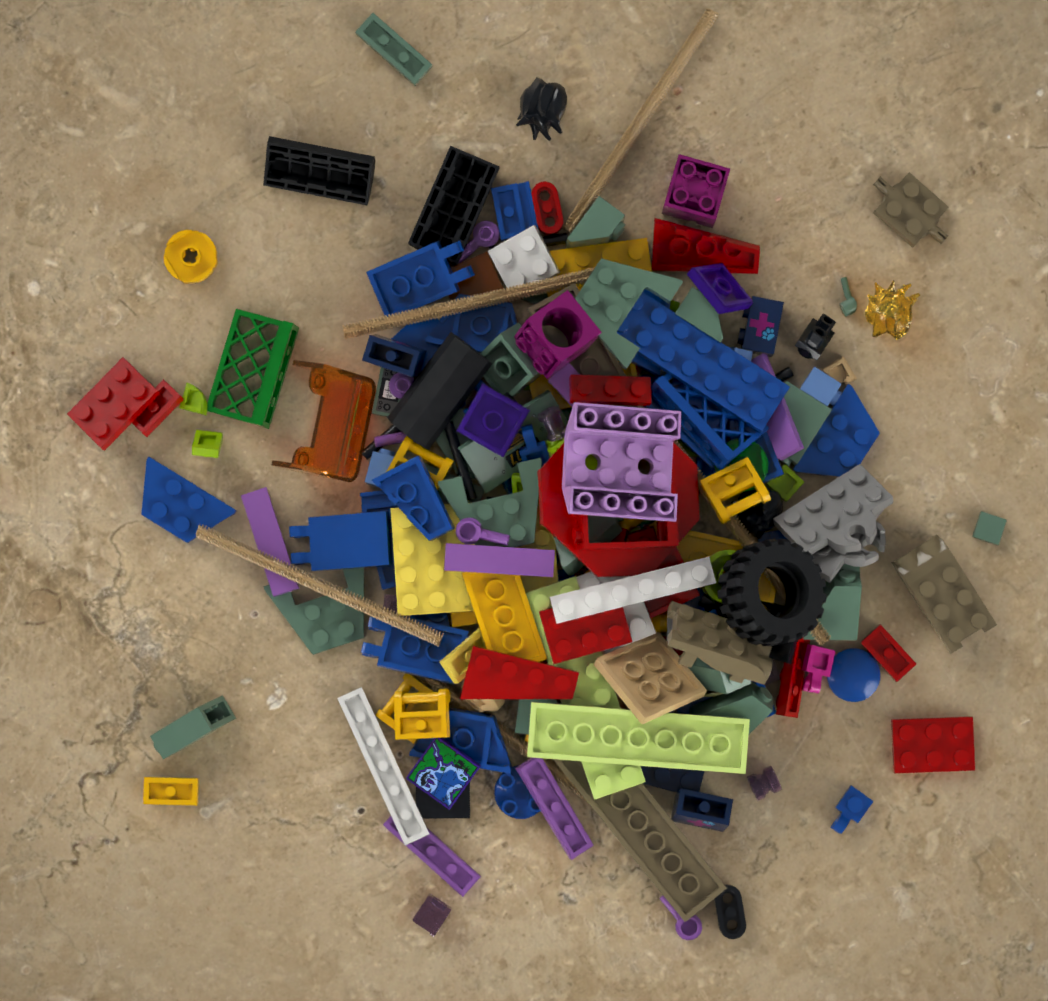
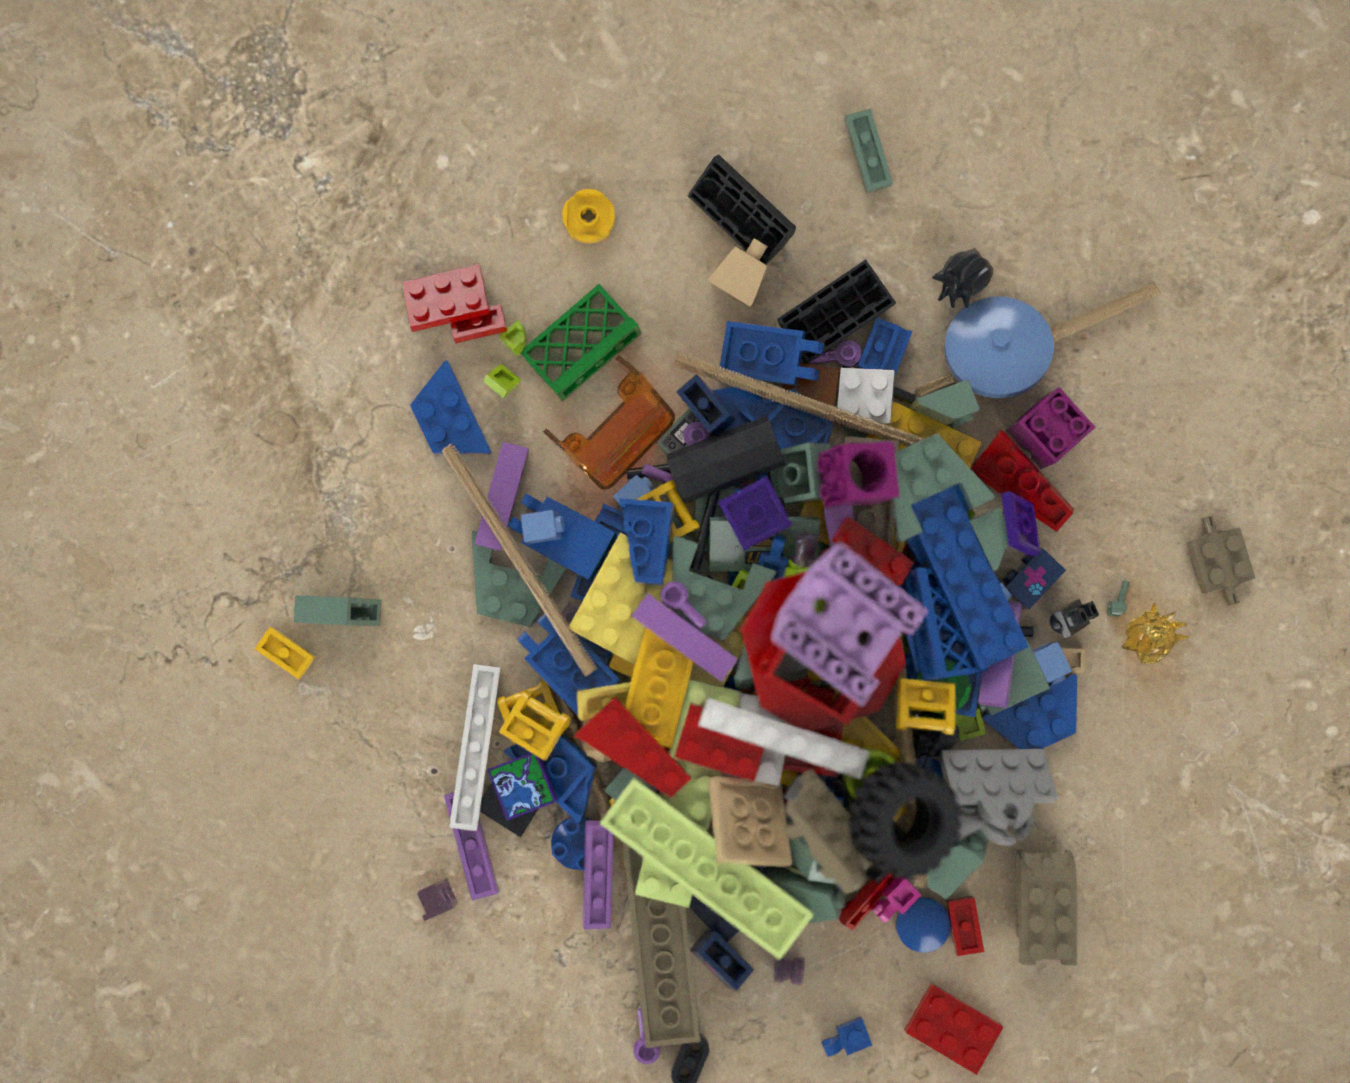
camera: 30 degrees right, 0 degrees up
(322, 544) = (542, 526): none -> medium blue brick
(353, 223) = (742, 273): none -> tan torso
(547, 209) = (913, 365): red plate -> none
(610, 148) = (999, 347): none -> medium blue dish
(989, 528) = (1118, 873): sand green tile -> none

